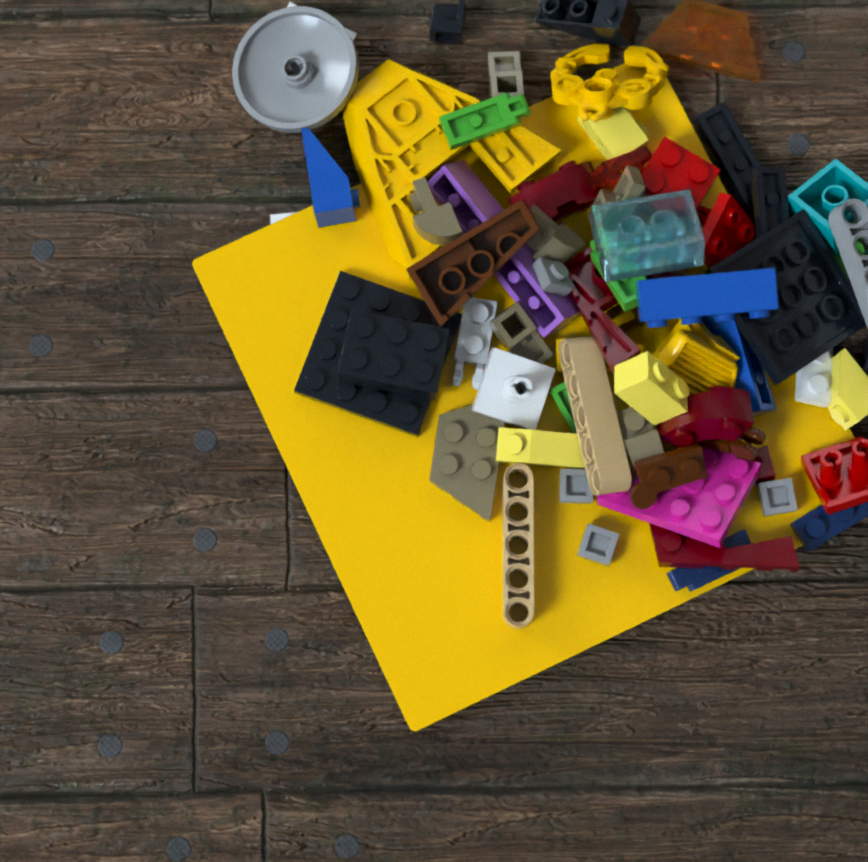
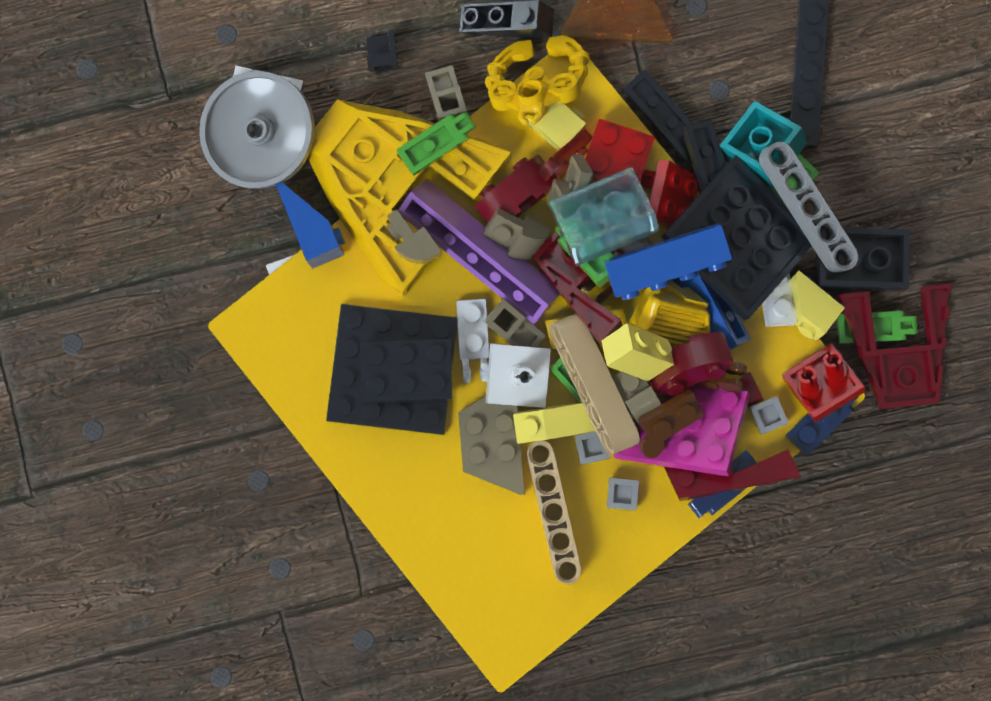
camera: 10 degrees left, 5 degrees up
(466, 264) = (452, 277): reddish brown wedge -> none
(552, 276) = (529, 268): light grey plate -> none

